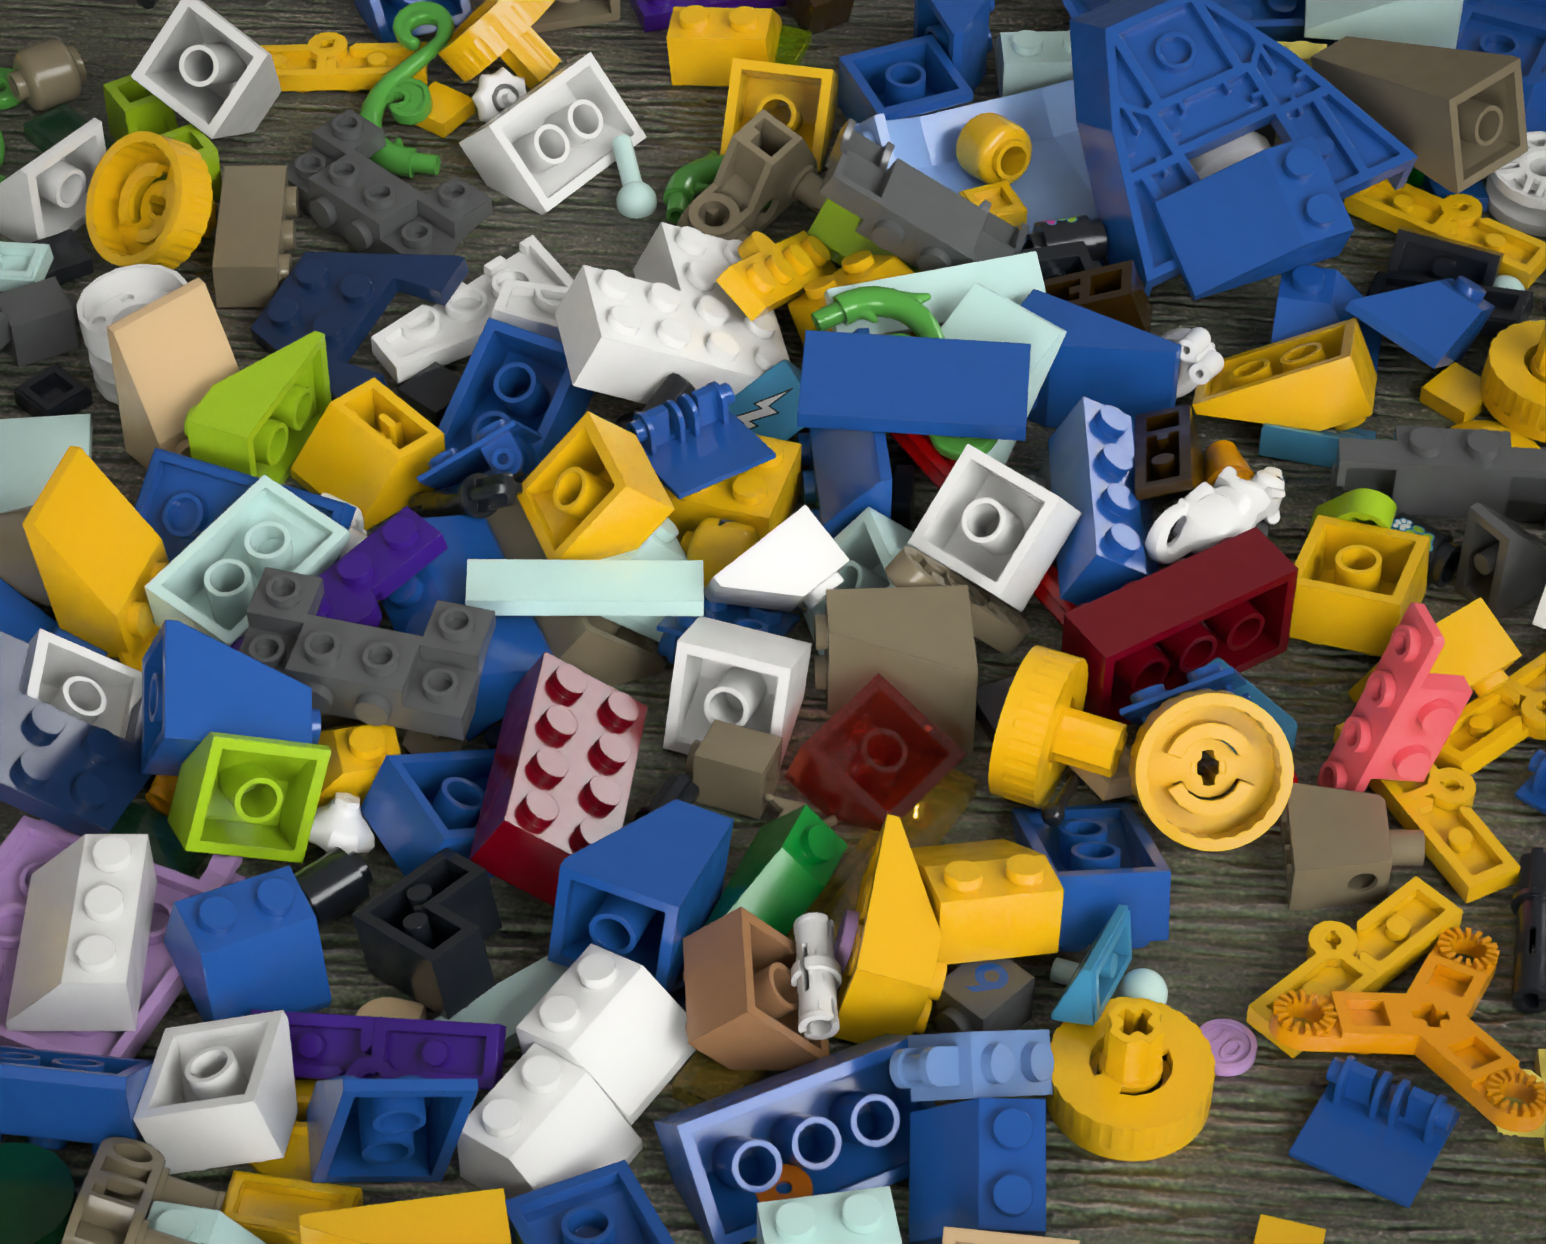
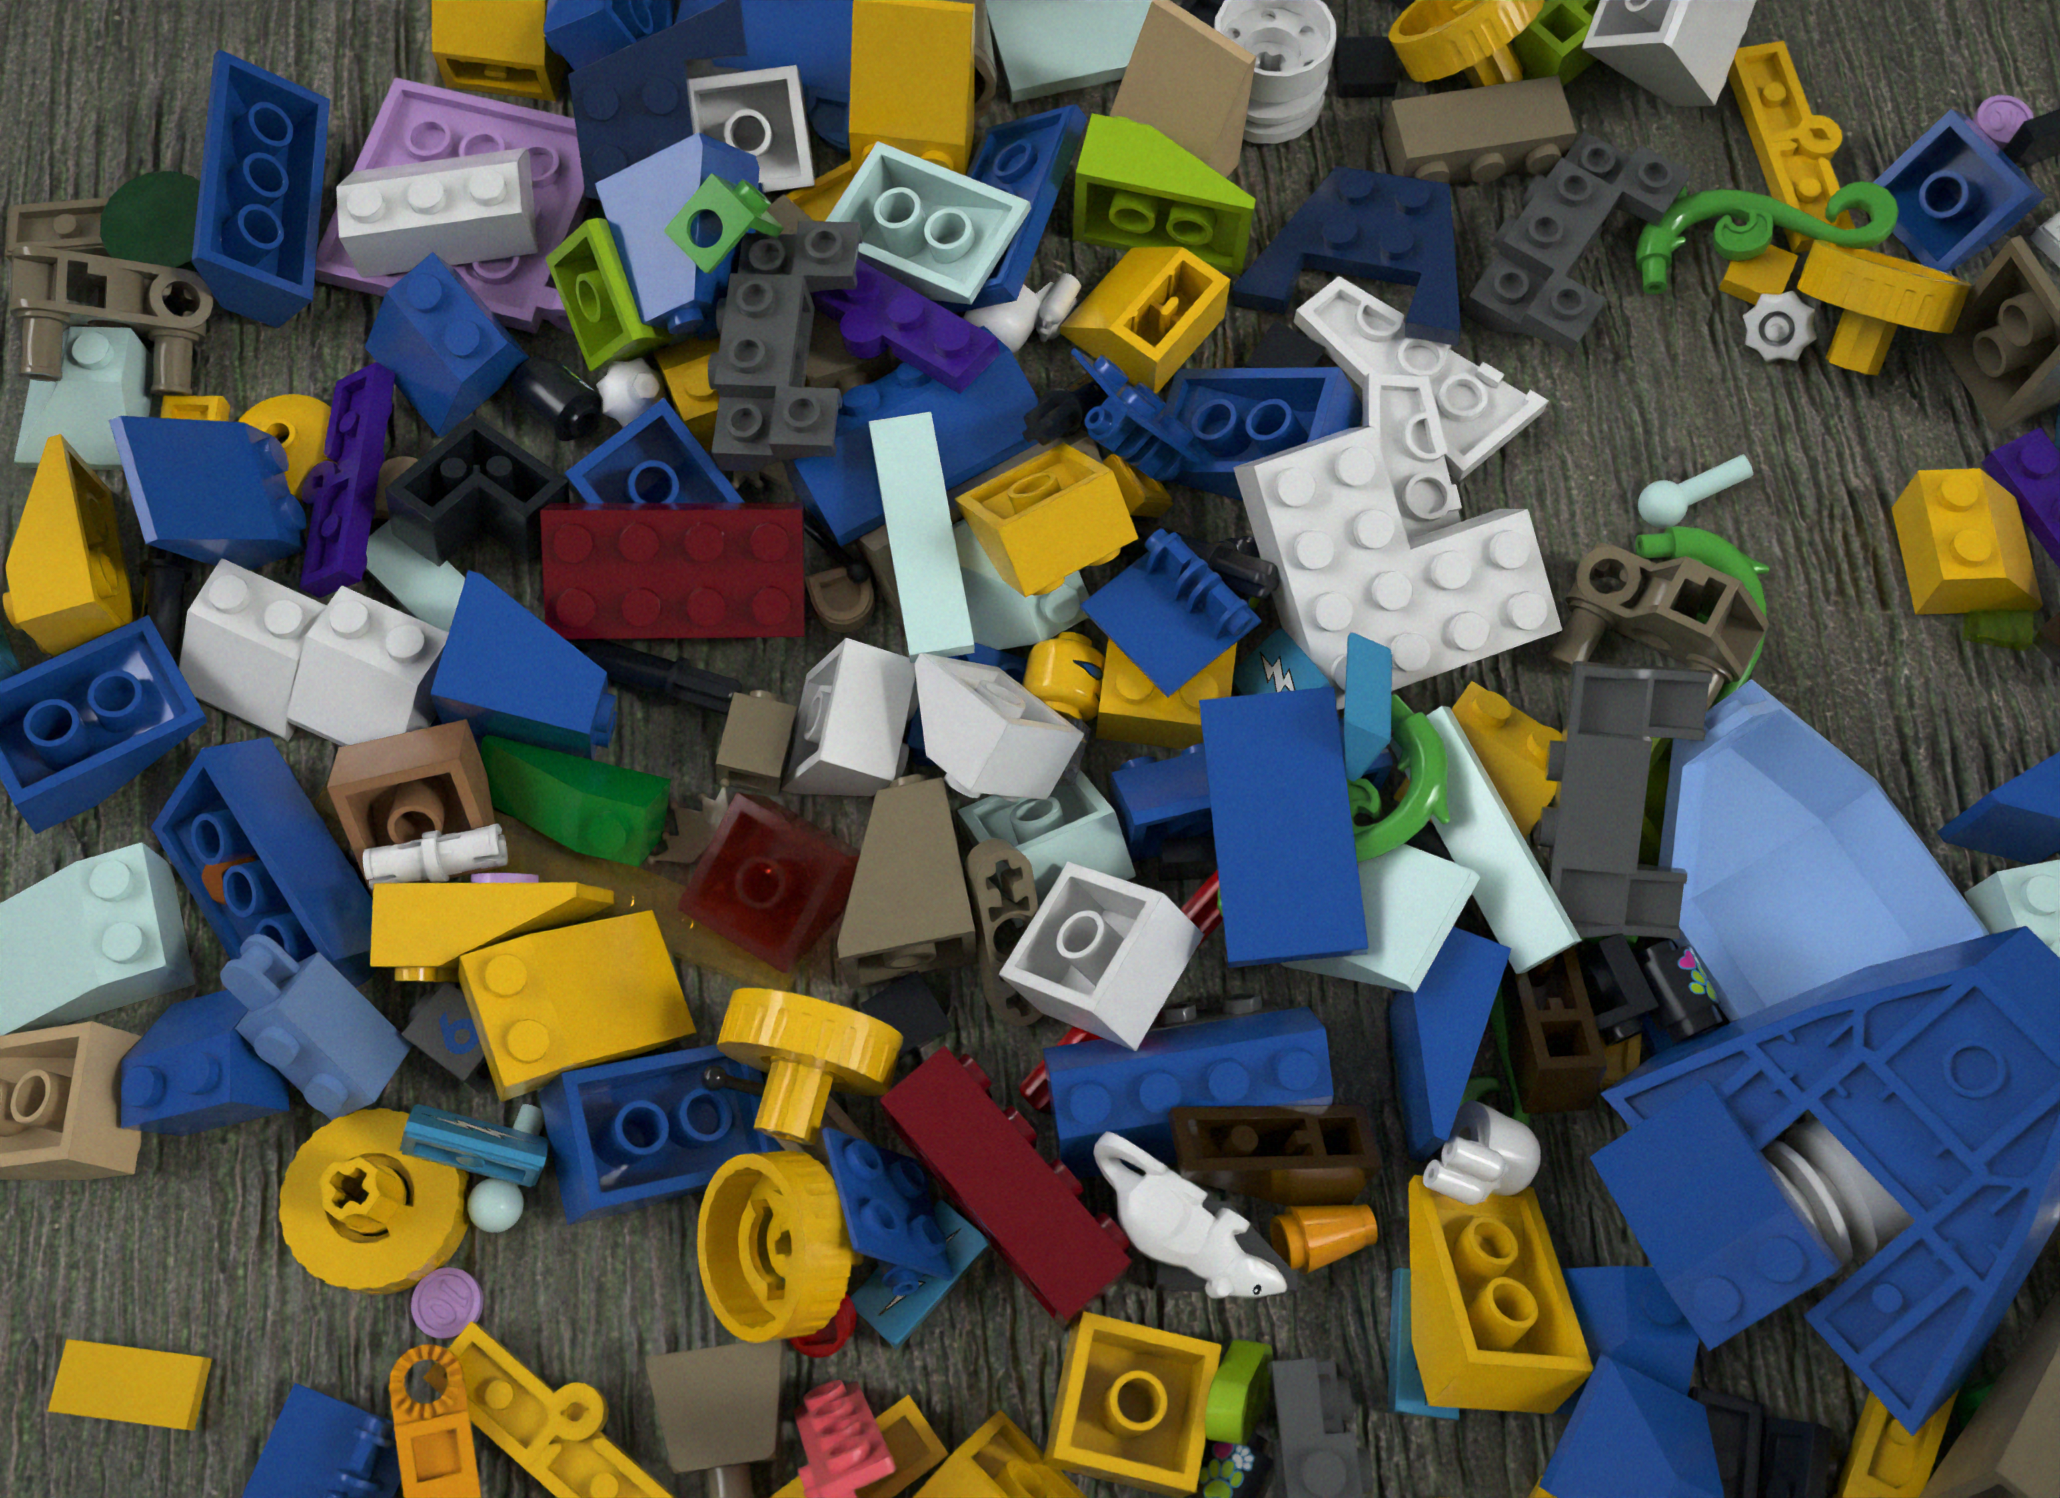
camera: 80 degrees right, 25 degrees up
(221, 1093) = (264, 353): white slope -> none
(237, 626) = (739, 209): none -> bright green bracket
(553, 137) = (1731, 393): white slope -> none
(774, 272) = (1499, 653): yellow hinge -> none
(787, 324) = (1366, 703): none -> dark azure slope
(793, 94) = (1846, 628): yellow slope -> none
(900, 81) = (1921, 755): blue slope -> none
(993, 148) = (1845, 885): yellow head -> none
(1003, 199) = (1751, 900): yellow tile -> none

